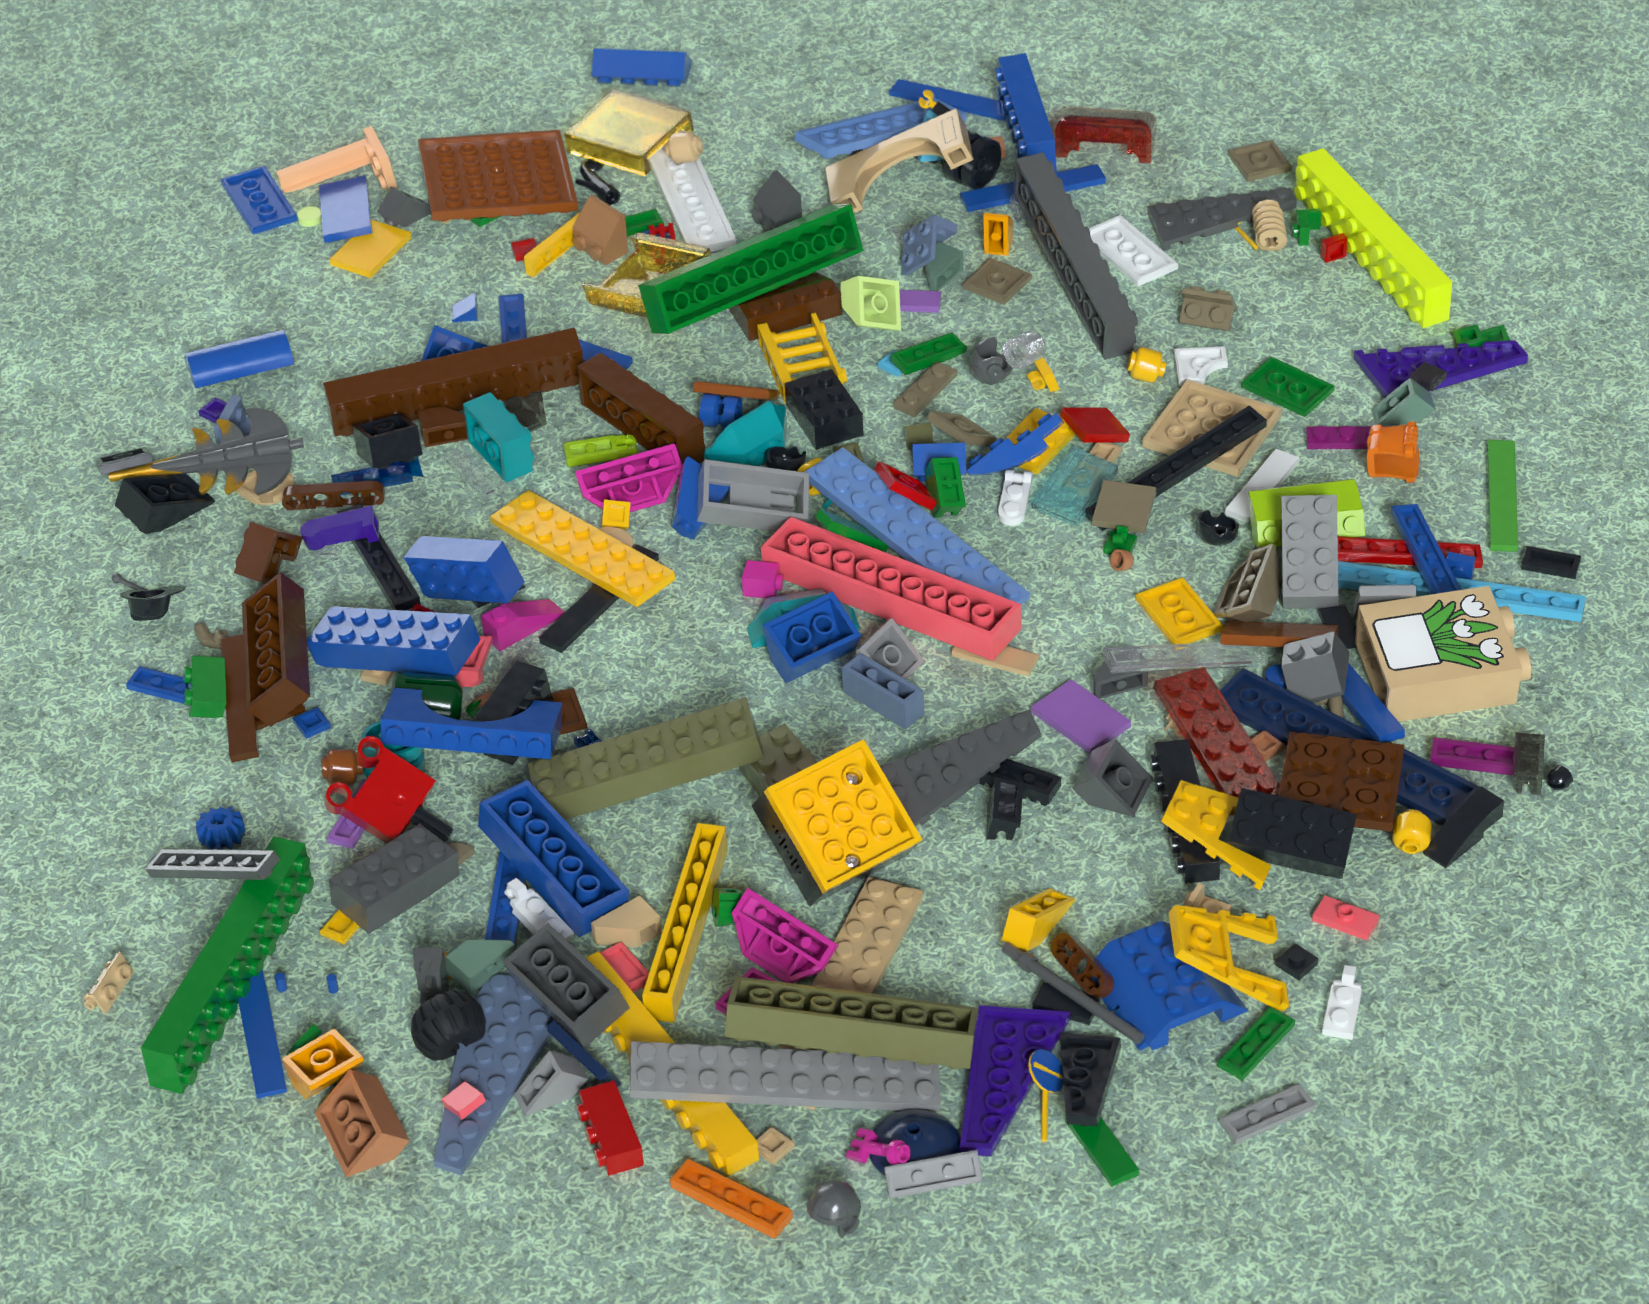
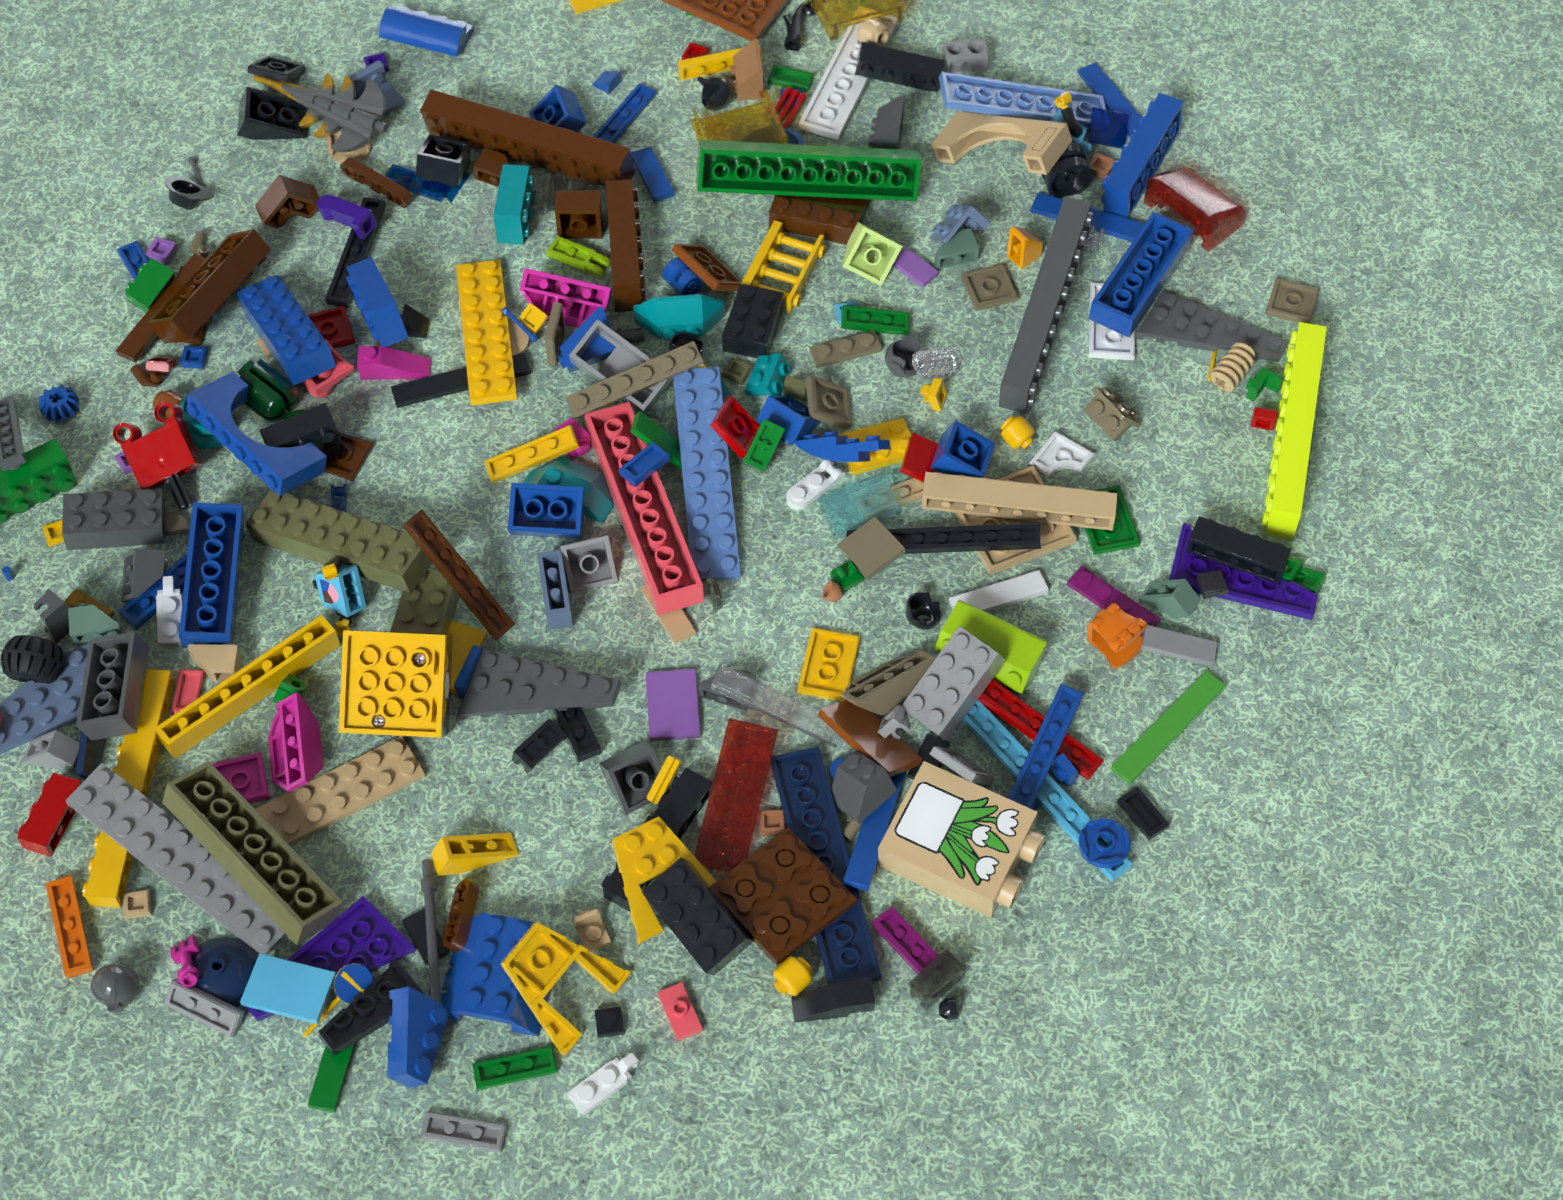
camera: 35 degrees right, 15 degrees up
(175, 658) = (162, 250): none -> medium lavender plate
(284, 765) = (150, 380): none -> reddish brown arm
(287, 743) = (160, 364): none -> tile
(478, 896) = (141, 571): none -> dark grey slope
(570, 412) = (579, 214): none -> reddish brown brick
(584, 258) = (715, 92): none -> black hair
(631, 529) = (532, 336): none -> blue hinge
(657, 509) = (554, 334): none -> dark tan tile
(685, 798) = (340, 591): none -> medium azure torso
(734, 161) = (899, 67): none -> black brick
(740, 608) = (531, 454): none -> yellow tile
(779, 127) = (965, 56): none -> light grey brick
(781, 495) = (634, 380): none -> dark tan plate
(787, 712) = (458, 574): none -> reddish brown tile
(863, 549) = (644, 464): none -> blue tile
(881, 441) = (768, 375): none -> teal bracket
(972, 114) = (1108, 128): none -> clear blue piece
(997, 1106) = (288, 988): none -> medium azure tile
(1029, 617) = (714, 593): none -> clear smoke tile
(1124, 198) = (1140, 274): none -> blue brick
(1125, 399) = (962, 452): none -> blue brick
(1144, 764) = (663, 779): none -> yellow axle
(1154, 1063) = (416, 1036): none -> blue wedge
(1208, 404) = (1019, 501): none -> tan brick
(1288, 610) = (892, 722): none -> light grey tile
(1424, 340) = (1238, 549): none -> black brick
(1450, 435) = (1179, 645): none -> light grey tile
(1550, 604) = (1101, 856): none -> blue tile

